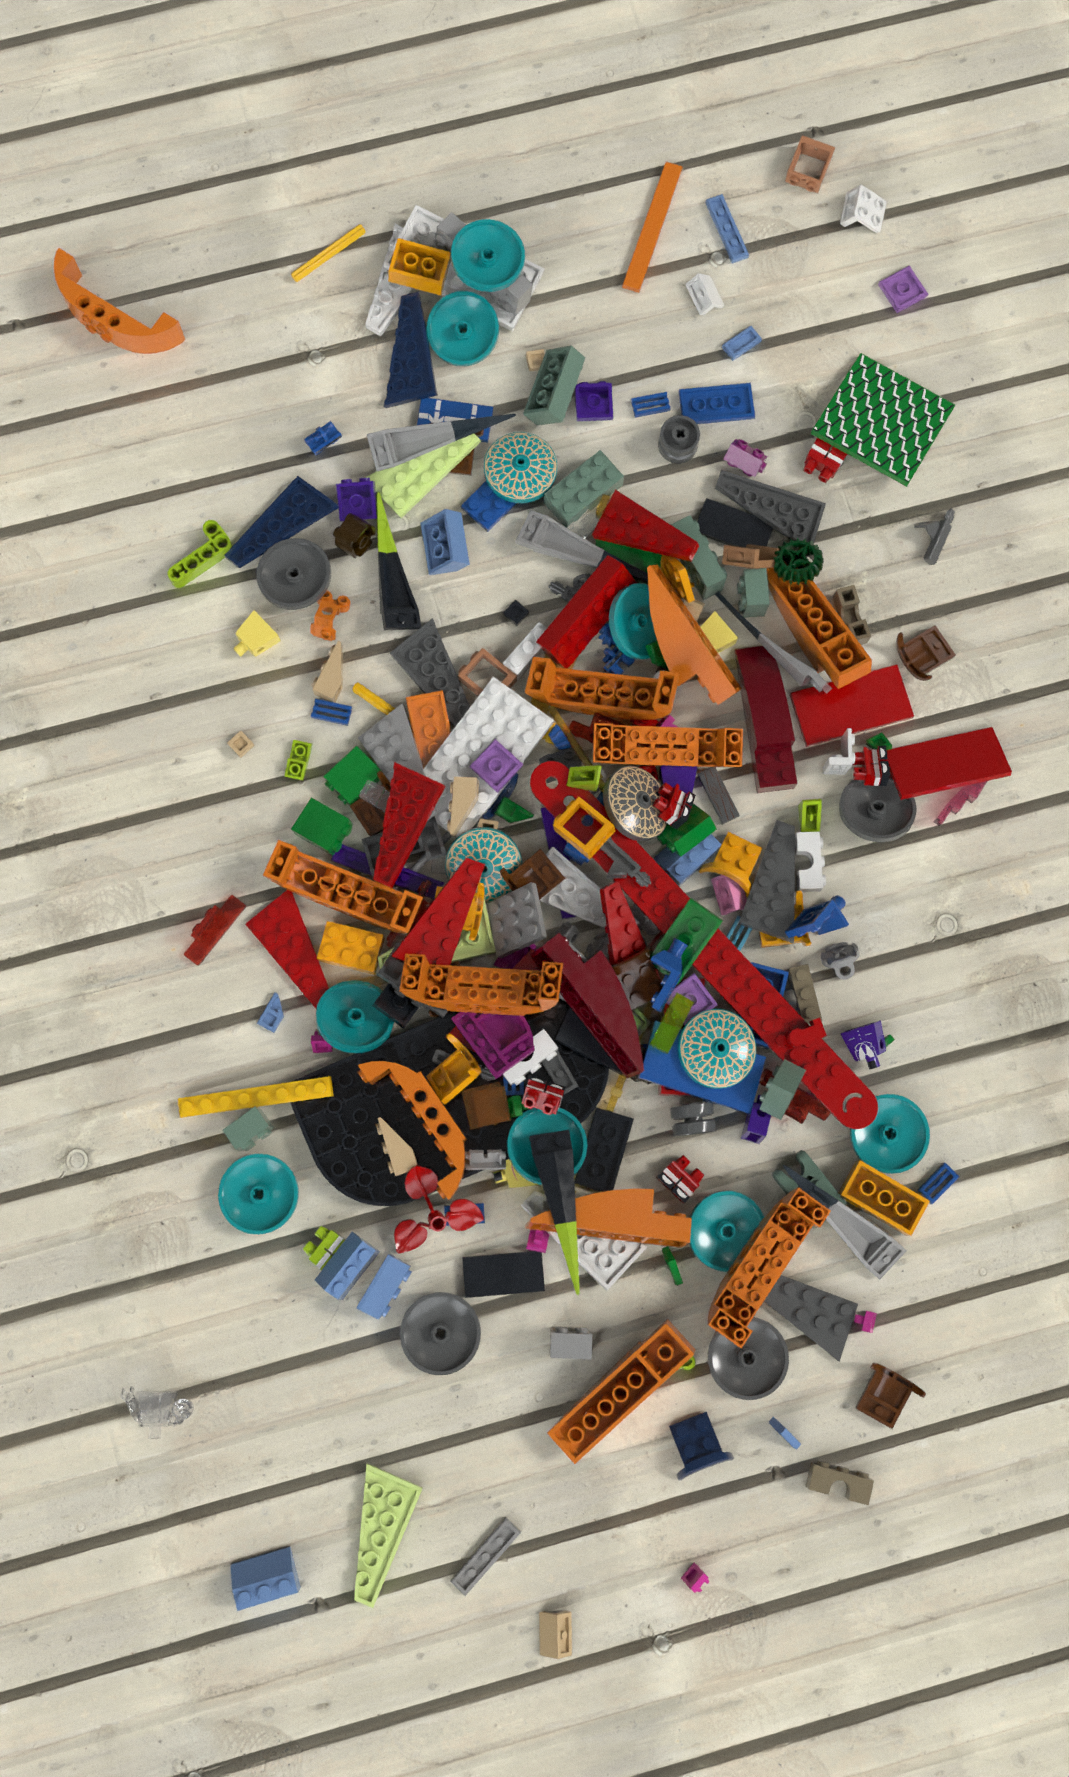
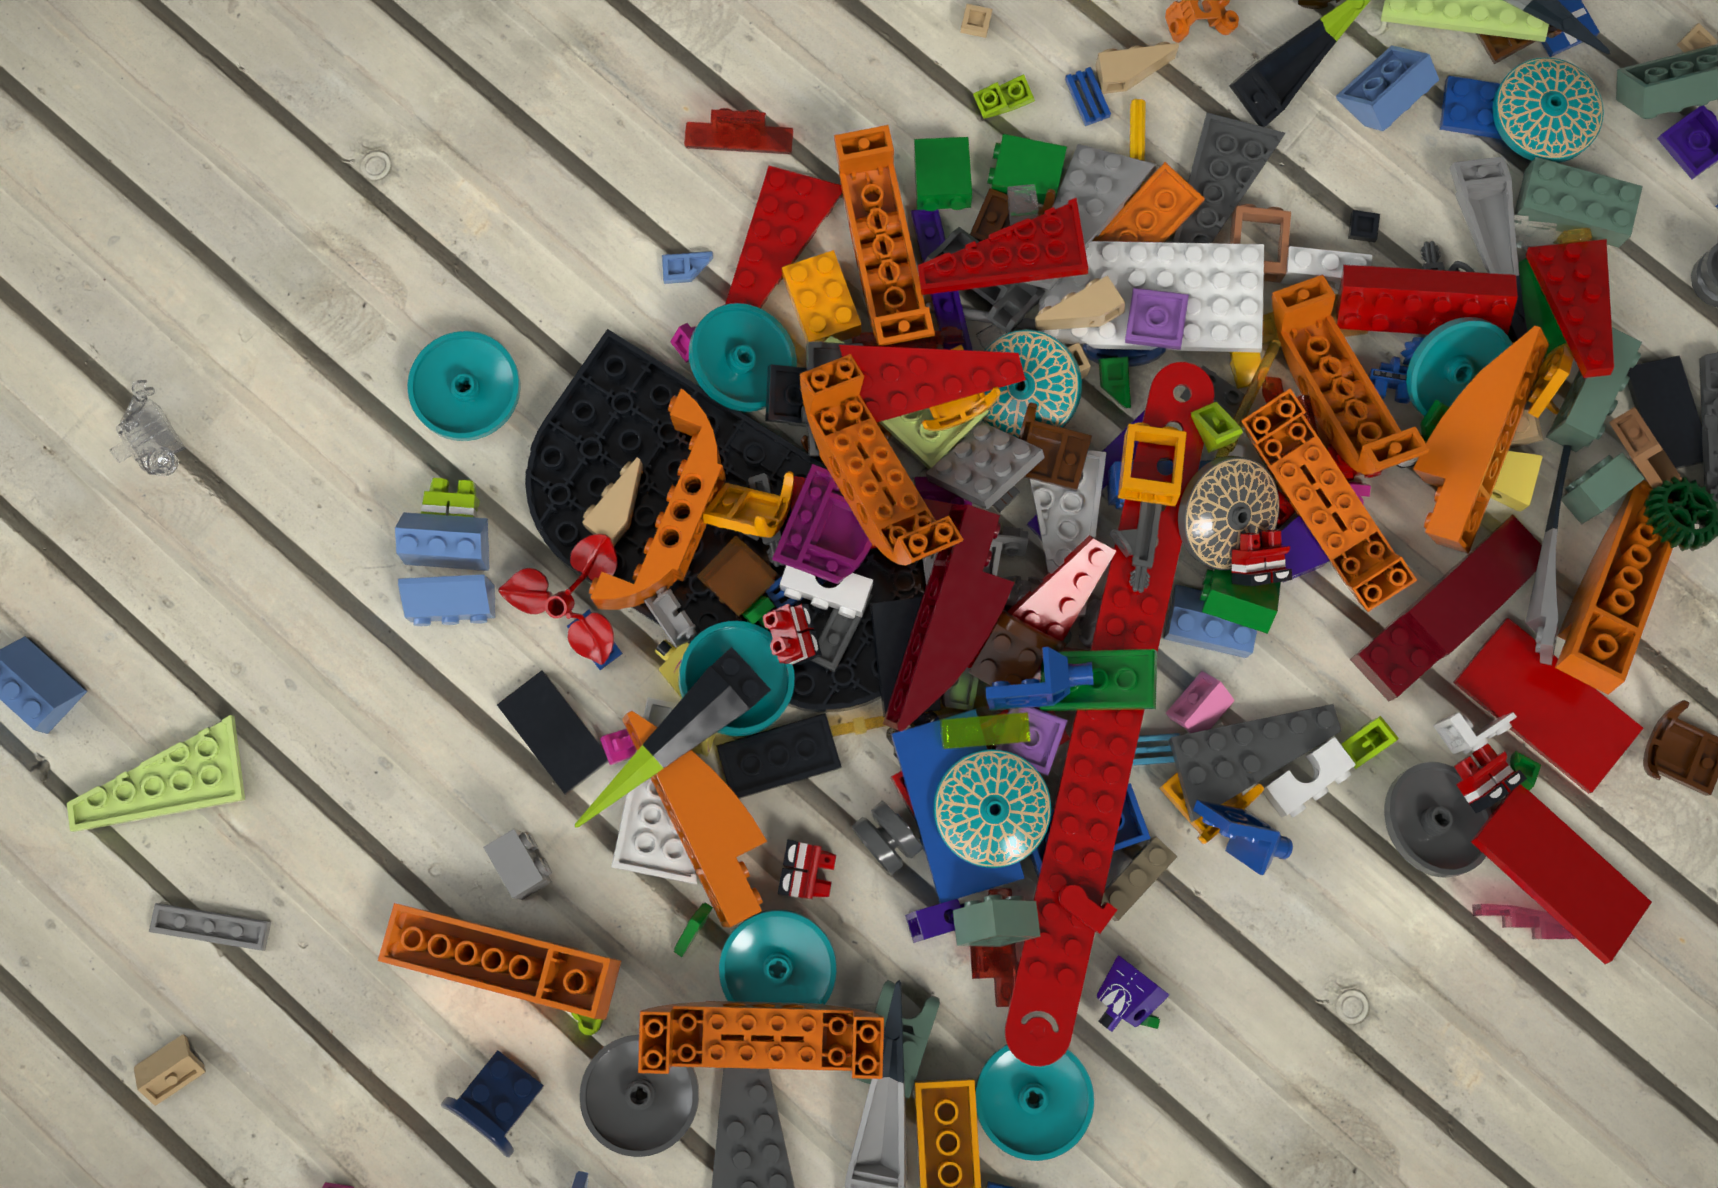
camera: 60 degrees right, 0 degrees up
(248, 1129) = (530, 324): sand green brick -> none
(255, 1096) = (574, 309): yellow plate -> none
(429, 1350) = (409, 695): dark grey dish -> none
(558, 738) = (1244, 372): blue piece -> none
(718, 795) = (1313, 613): dark grey tile -> none
(735, 860) = (1245, 684): light orange piece -> none
(839, 956) = (1216, 892): light grey tile -> none
(847, 605) = (1670, 617): dark tan arch -> none

